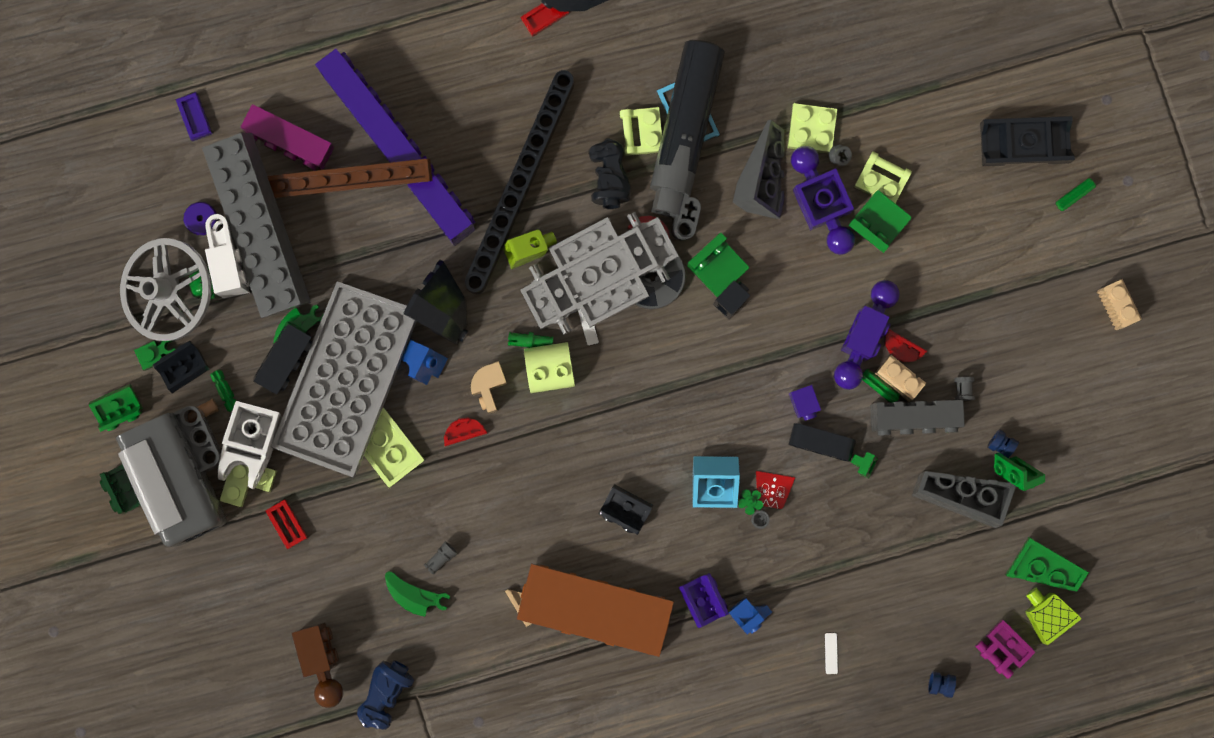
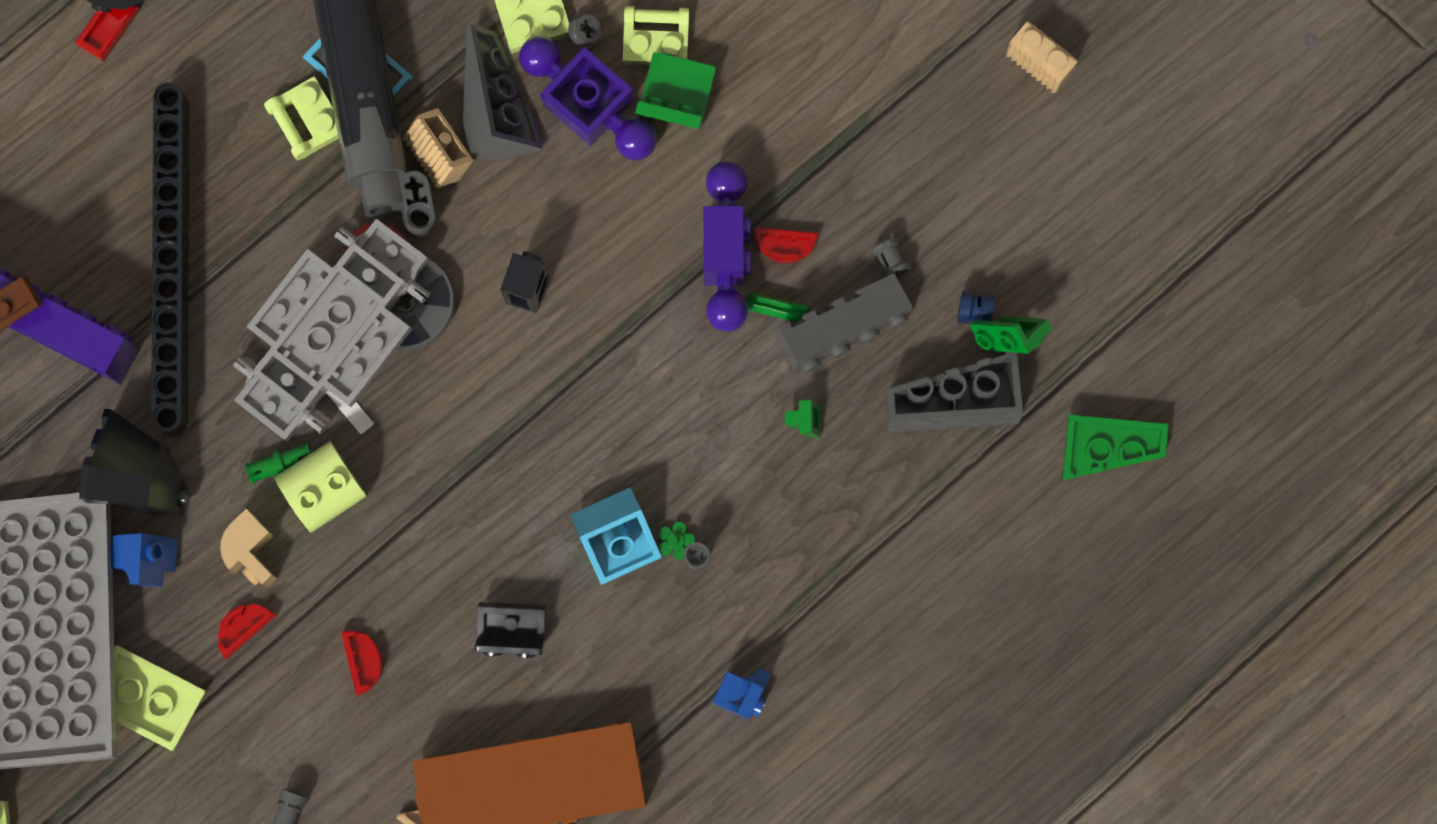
camera: 25 degrees left, 5 degrees down
(519, 251) = (218, 339): lime torso -> none
(528, 485) = (364, 660): none -> red tile
(612, 181) = (295, 201): black animal -> none
(704, 600) = (672, 702): dark purple bracket -> none
(715, 189) = (437, 148): none -> tan brick
(717, 265) = (484, 245): green bracket -> none
(773, 488) = (699, 509): red sticker -> none
(805, 402) = (687, 374): dark purple brick -> none
(822, 442) = (734, 416): black beam -> none
(831, 653) = (879, 694): white sticker -> none
(900, 378) = (798, 283): tan brick -> none
(942, 684) = (1045, 665): dark blue wheel -> none
(1010, 643) = (1109, 568): magenta plate -> none
(1049, 615) = (1144, 505): lime torso -> none

